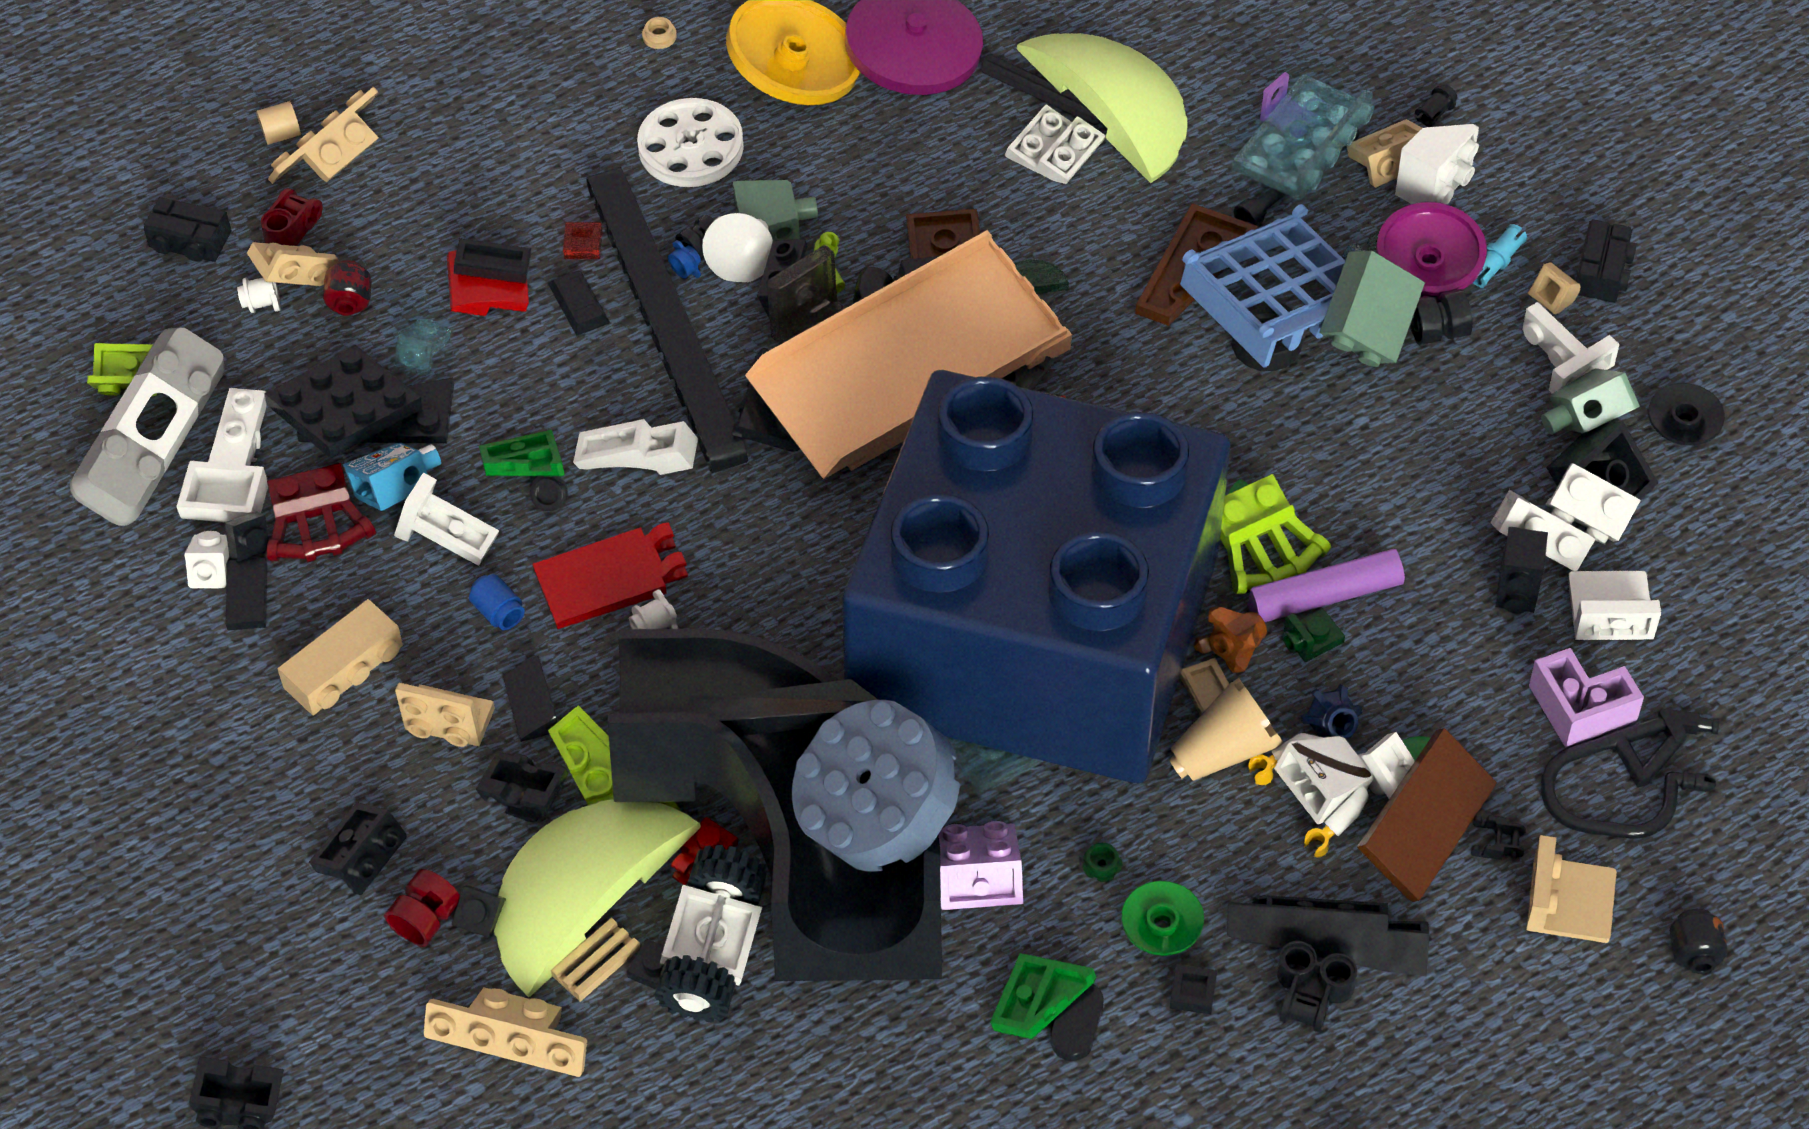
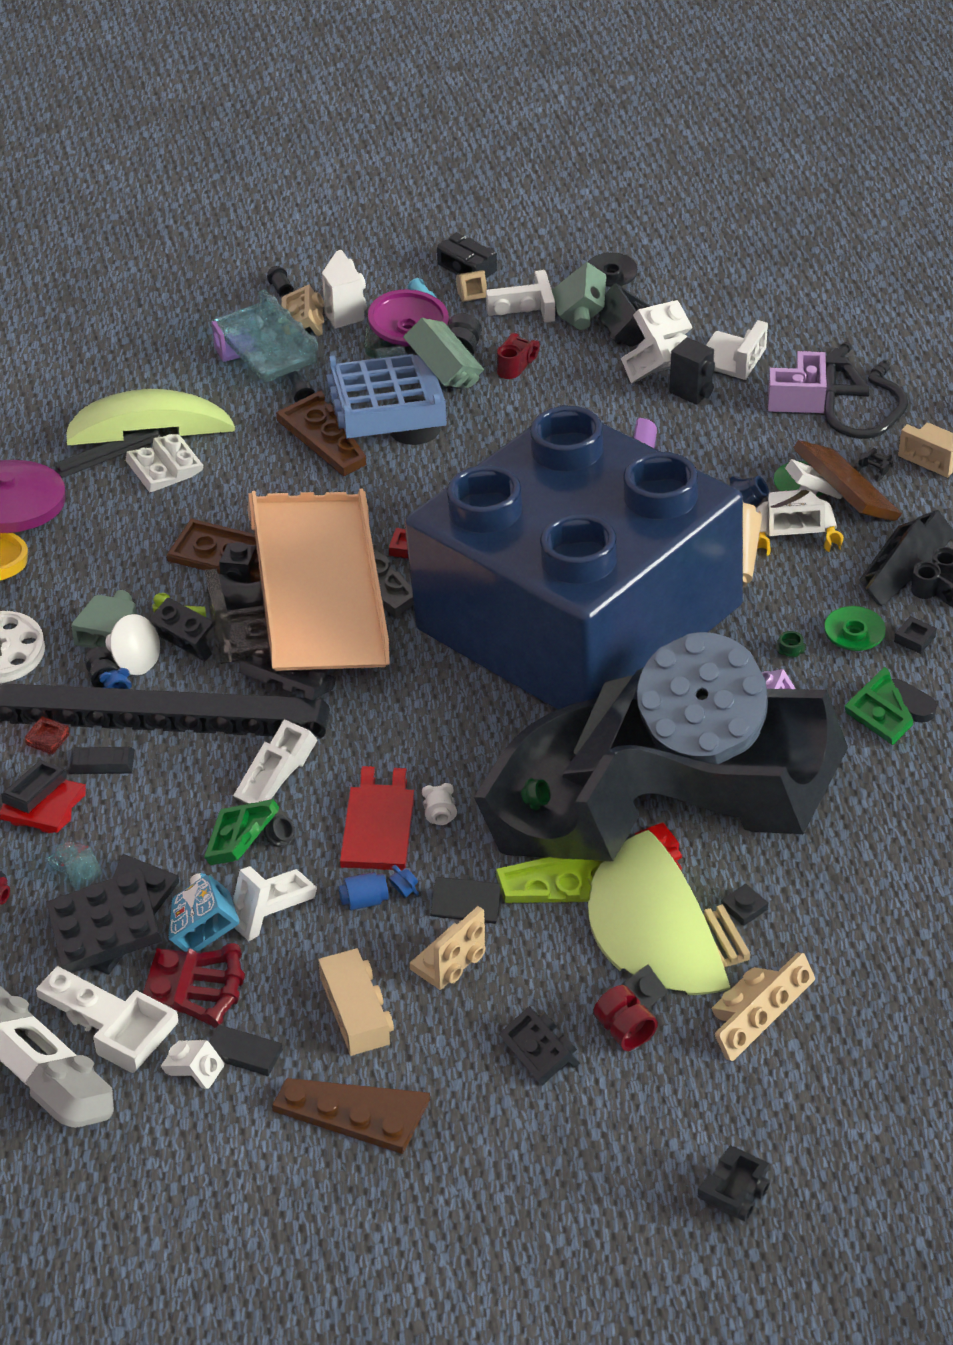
camera: 65 degrees left, 10 degrees down
(209, 722) = (361, 1112): none -> reddish brown wing
(247, 536) = (195, 1022): black plate -> none
(522, 786) = (552, 923): black cylinder -> none
(526, 631) = (403, 881): none -> blue plate
(668, 696) = (536, 793): none -> dark green plate
(711, 933) = (746, 854): plate -> none
(1449, 383) = (515, 356): none -> dark red piece

